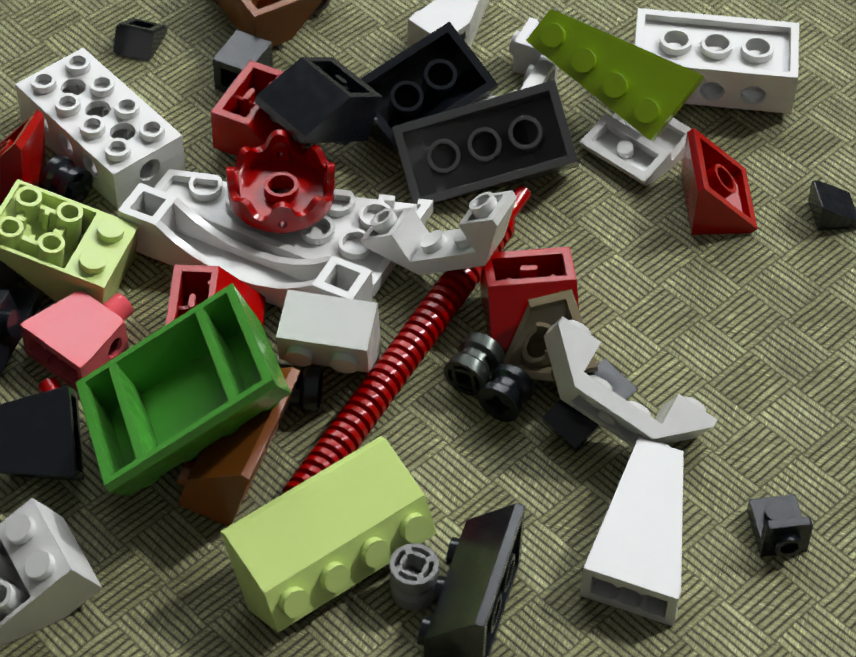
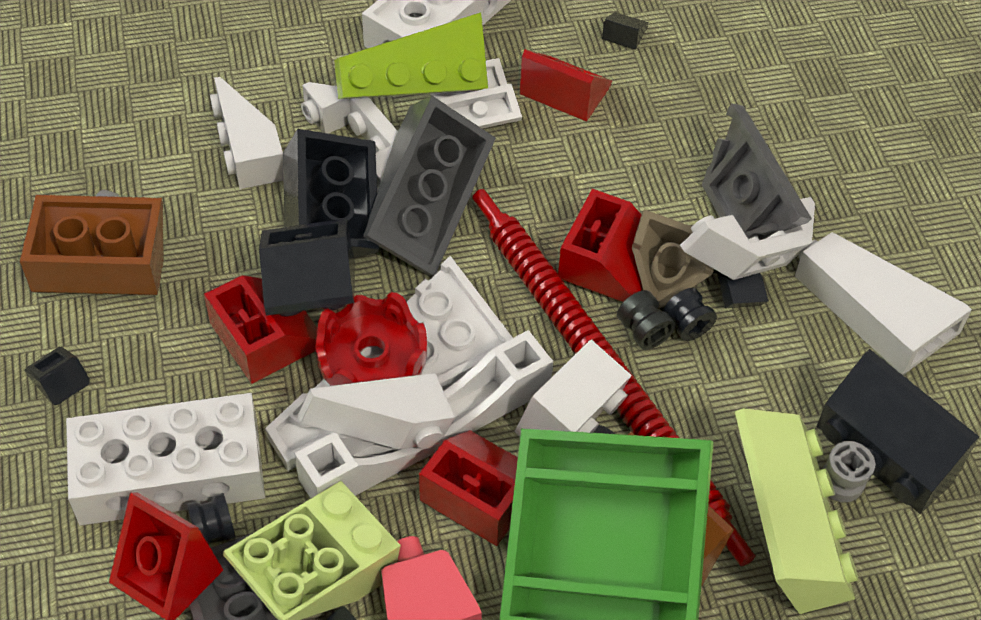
camera: 60 degrees left, 5 degrees up
(220, 220) = (385, 411): none -> white slope
(235, 56) = (175, 309): brick -> none
(406, 241) = (537, 263): white slope -> none
(685, 367) = (750, 182): none -> flat silver wing
(779, 525) = (909, 221): black bracket -> none

